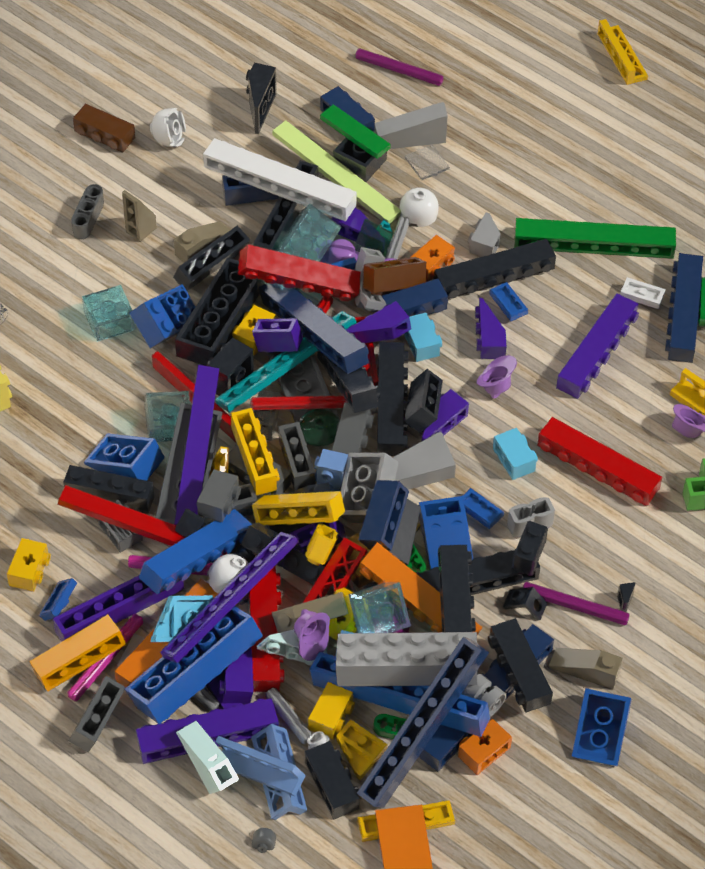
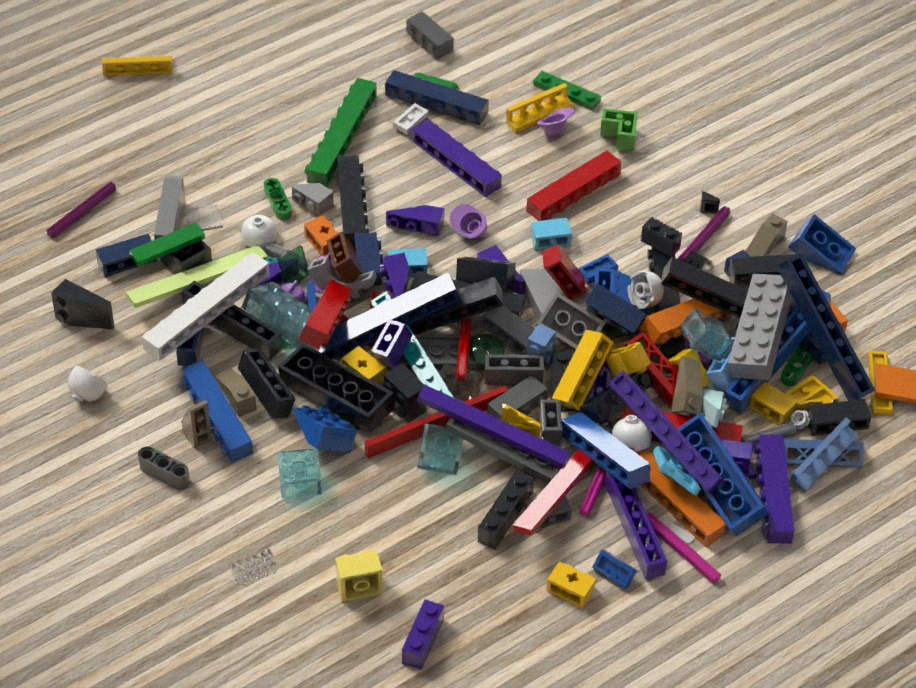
camera: 75 degrees left, 5 degrees down
(77, 652) = (681, 561): light orange brick -> none
(97, 714) = (746, 557): dark grey brick -> none
(104, 128) = (59, 436): reddish brown brick -> none
(126, 456) = (471, 492): blue slope -> none
(160, 237) = (223, 420): none -> blue brick
(189, 523) = (572, 451): black slope -> none
(207, 758) = (815, 486): light aqua slope -> none
(218, 496) = (556, 419): dark grey brick -> none
(254, 451) = (513, 387): yellow brick -> none
(264, 840) = (880, 475): dark grey piece -> none
(312, 633) = (711, 383): medium lavender piece -> none
(431, 549) = (645, 289): none -> white cylinder
(441, 465) = (564, 272): none -> red brick
(472, 218) = (278, 192): none -> green beam
(508, 301) = (388, 201): blue plate -> none
(537, 511) = (621, 236): light grey brick -> none

